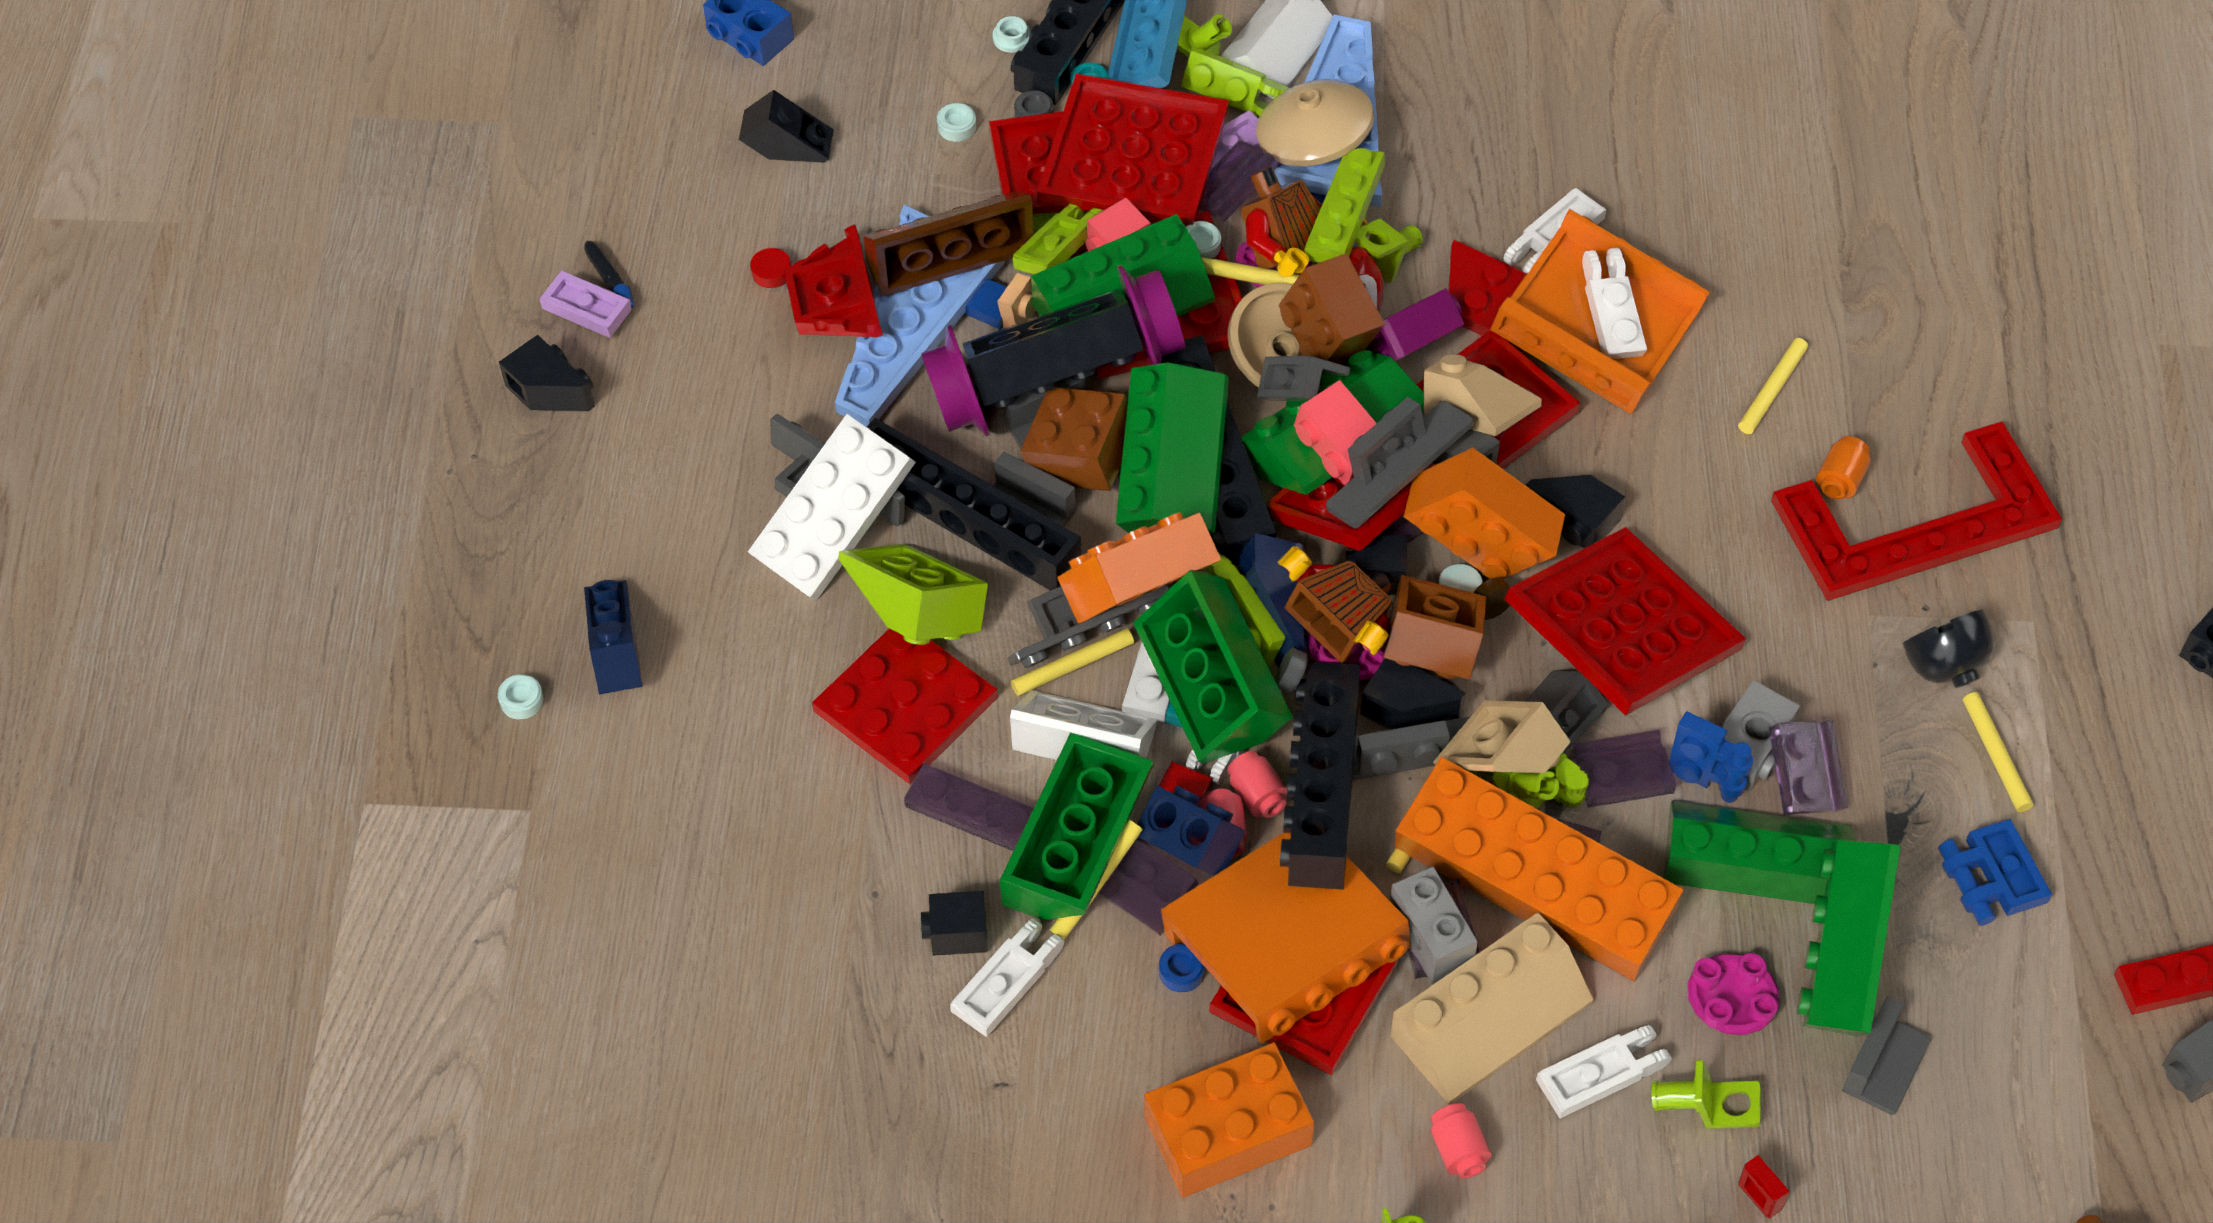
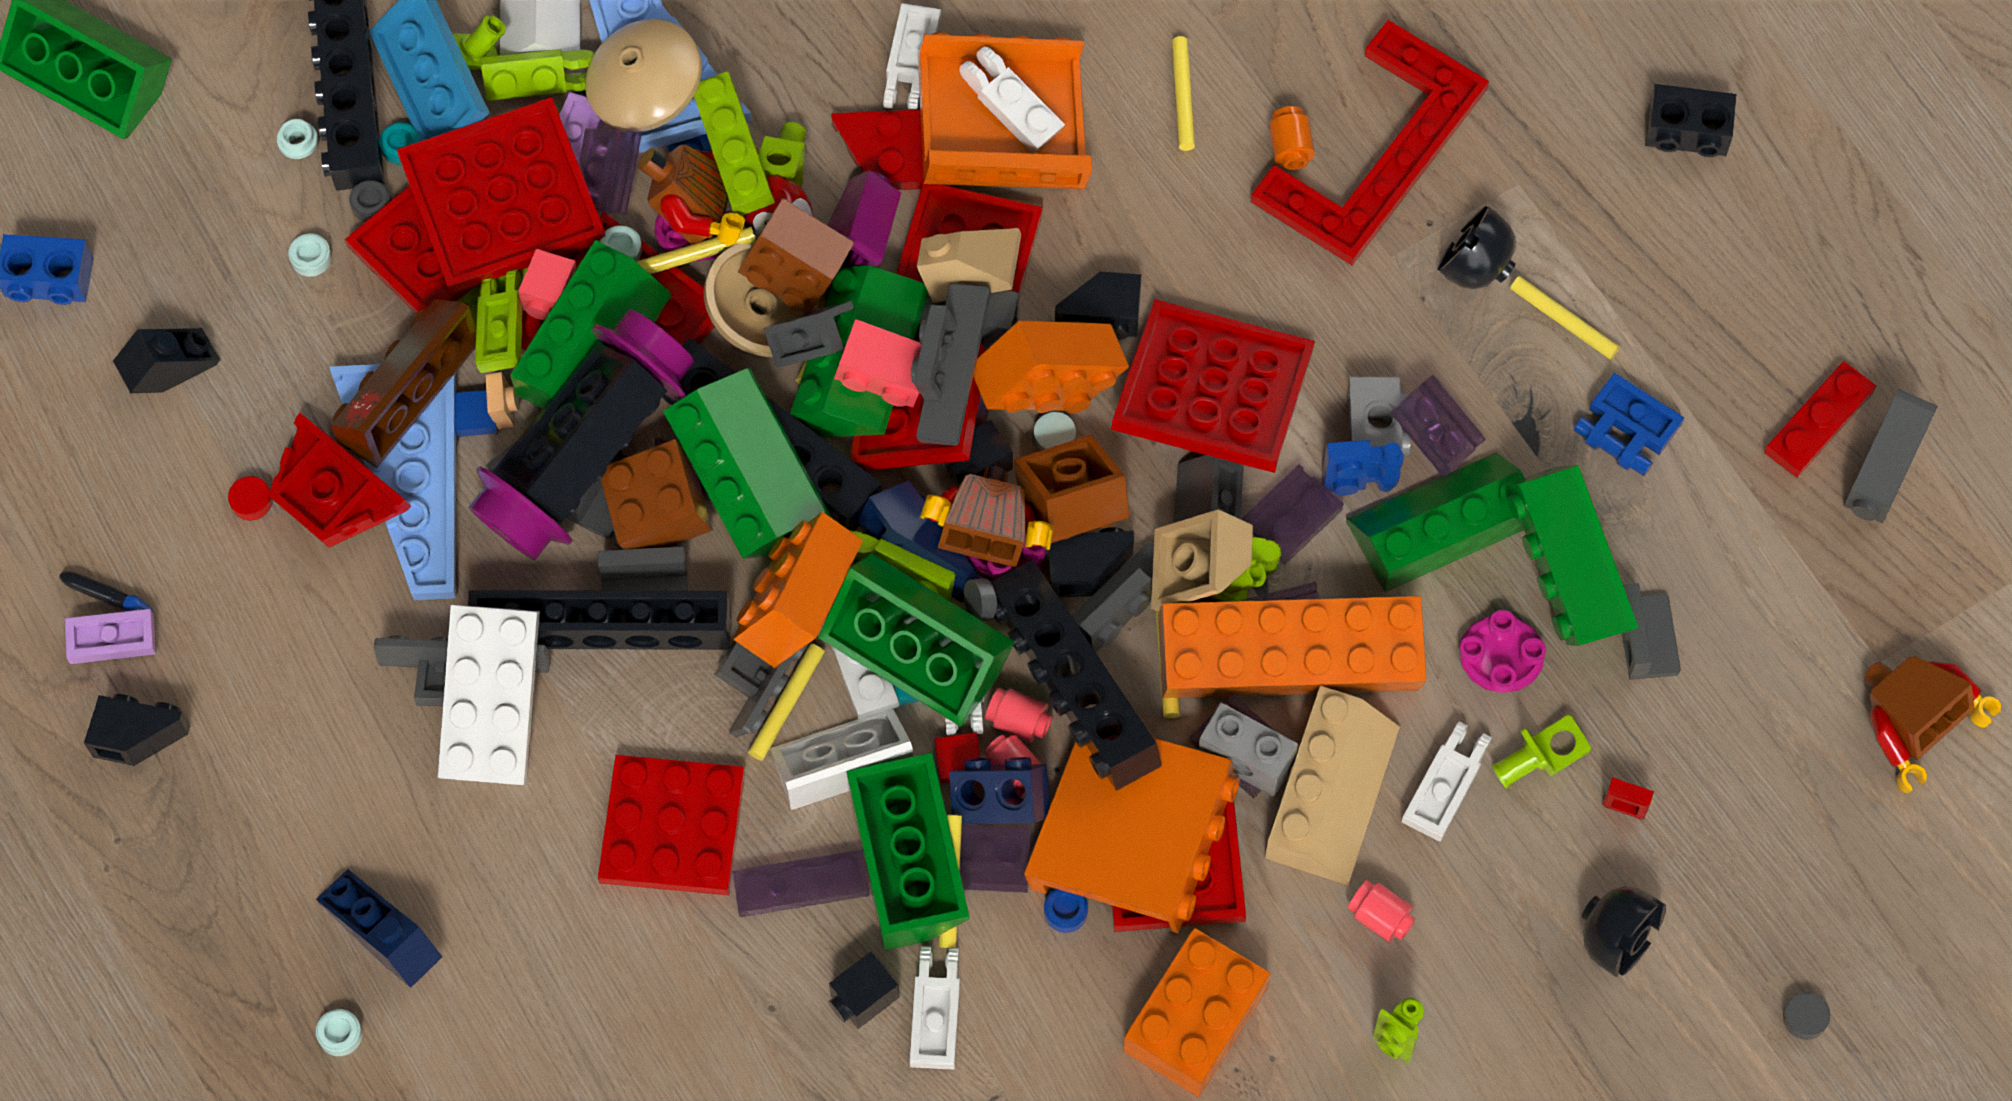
camera: 35 degrees left, 10 degrees up
(917, 592) = (617, 724): lime slope -> none
(1495, 592) = (1092, 423): dark brown tile -> none

